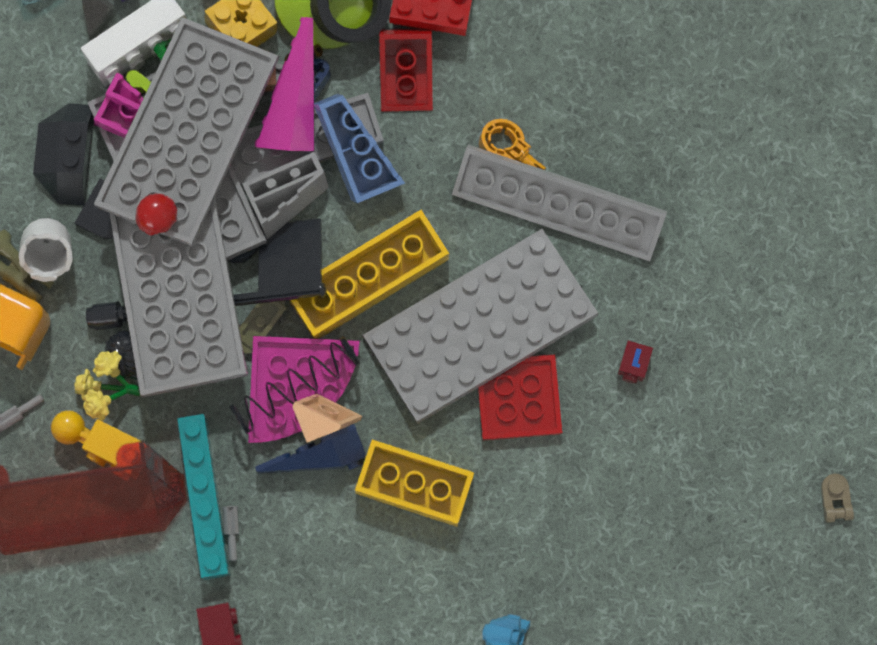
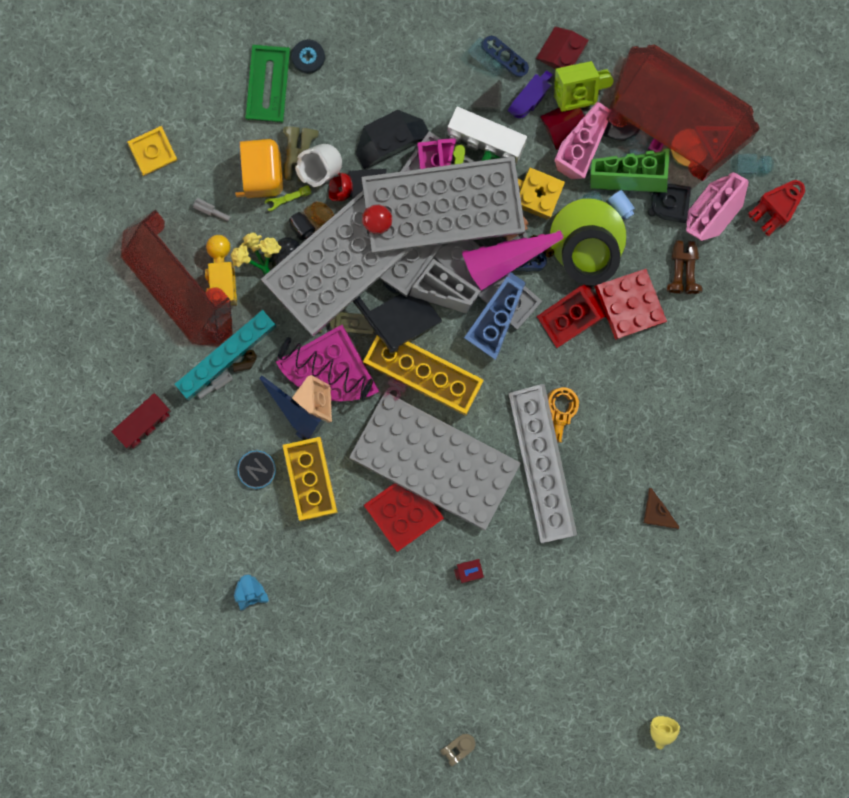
camera: 65 degrees right, 5 degrees up
(65, 291) = (302, 192): none -> lime piece
(80, 237) = (347, 187): none -> red hair
(104, 287) = (318, 213): none -> clear orange piece
(227, 477) = (247, 362): none -> dark brown arm
(363, 542) = (256, 469): none -> black tile
(366, 316) = (398, 386): none -> clear pink tile
(692, 110) = (657, 513): none -> reddish brown tile

